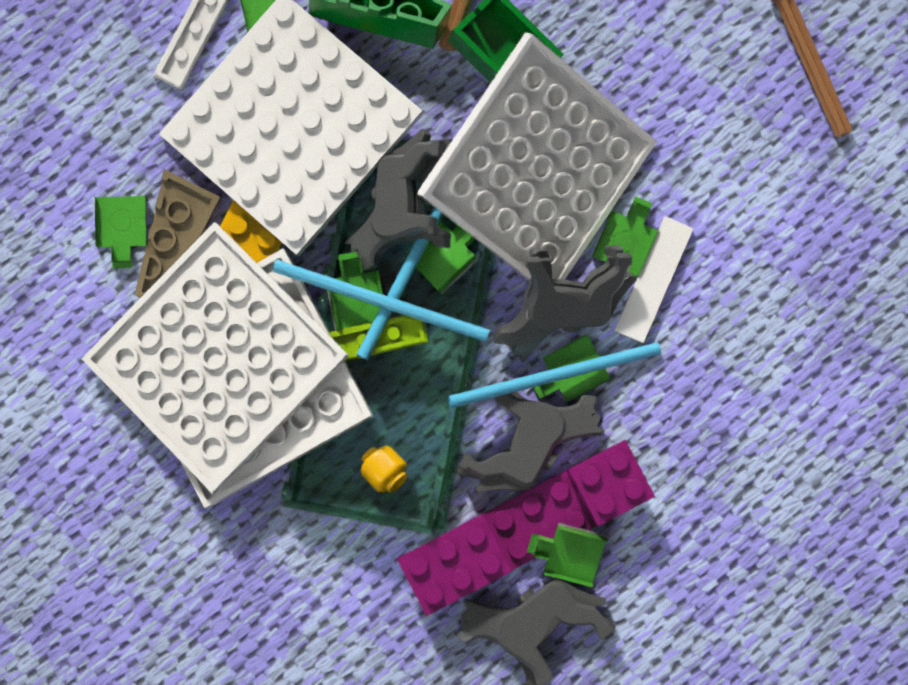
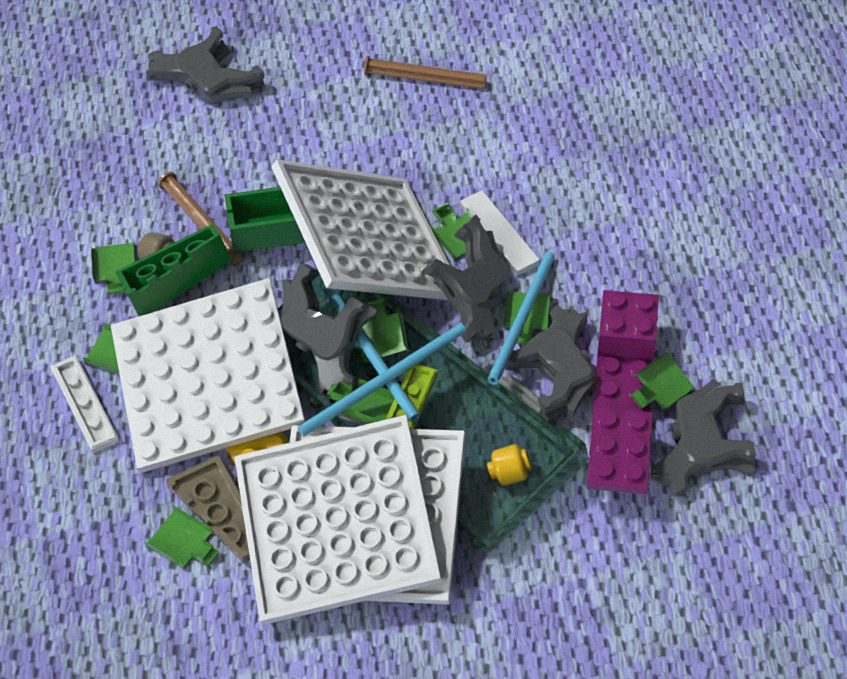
camera: 50 degrees left, 30 degrees down
(475, 428) = (522, 392): none -> light grey axle

